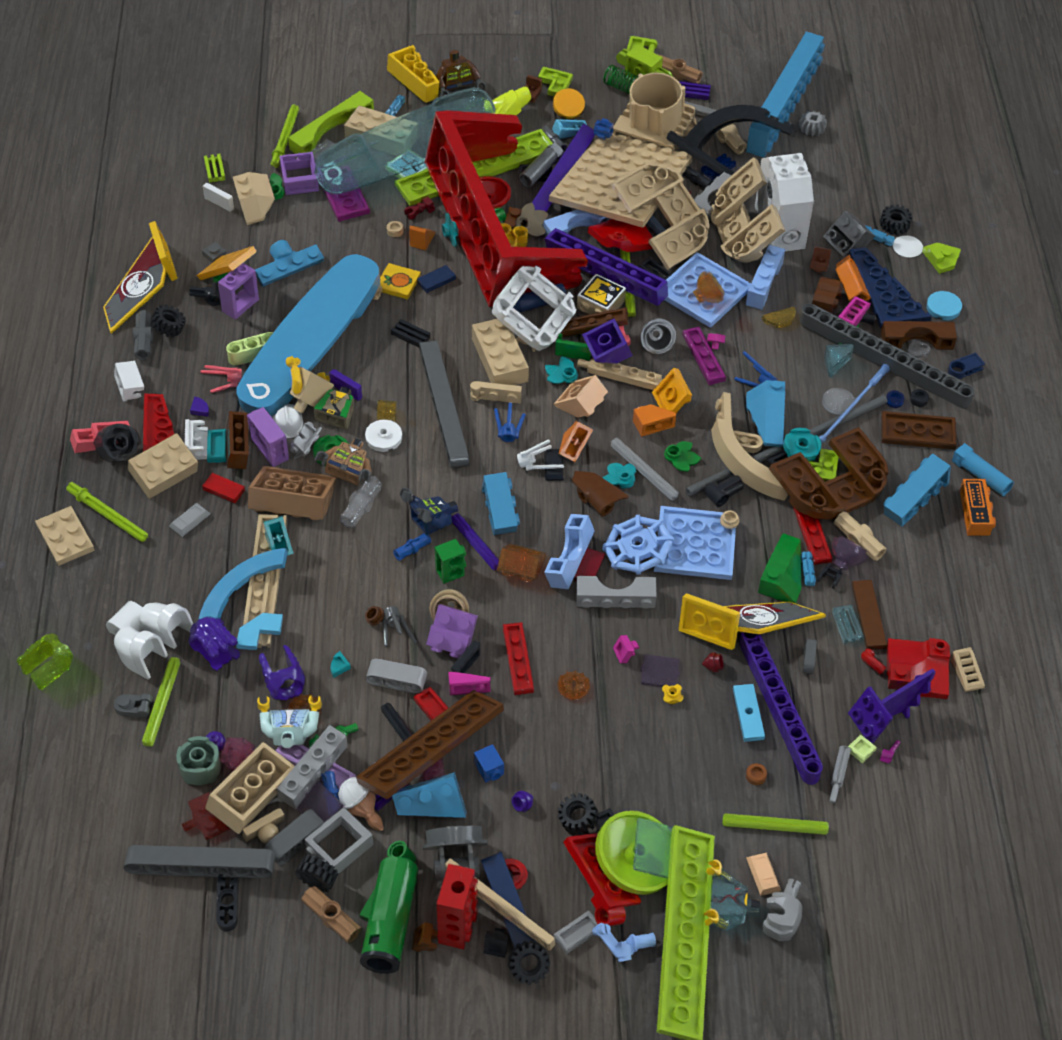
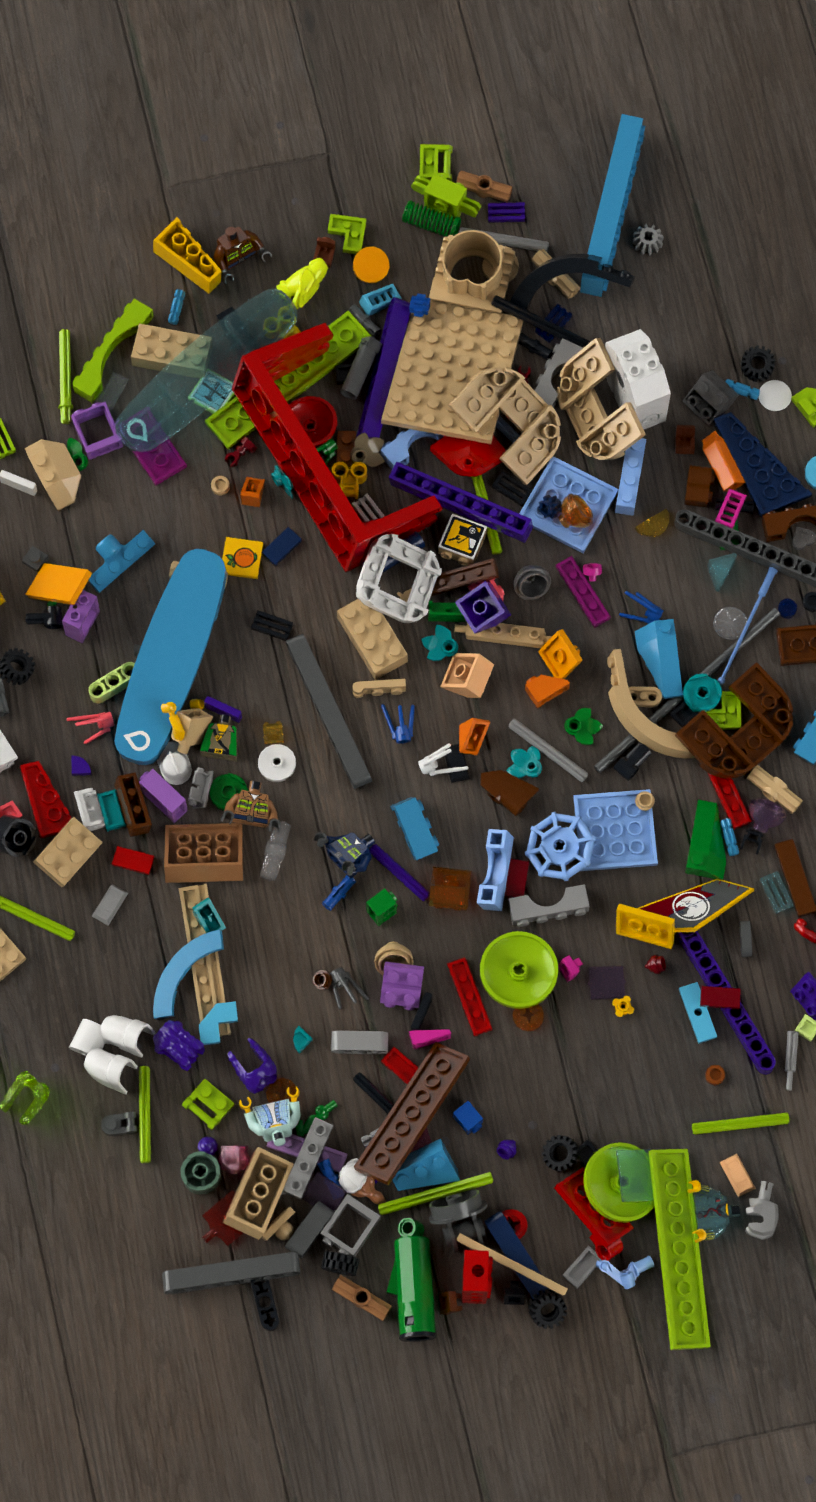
camera: 10 degrees left, 20 degrees up
(233, 700) = (211, 1098): none -> lime plate
(421, 827) = (435, 1193): none -> lime axle
(573, 639) = (518, 970): none -> lime dish
(686, 282) = (550, 506): none -> dark blue gear
(774, 697) = (720, 997): none -> dark red tile

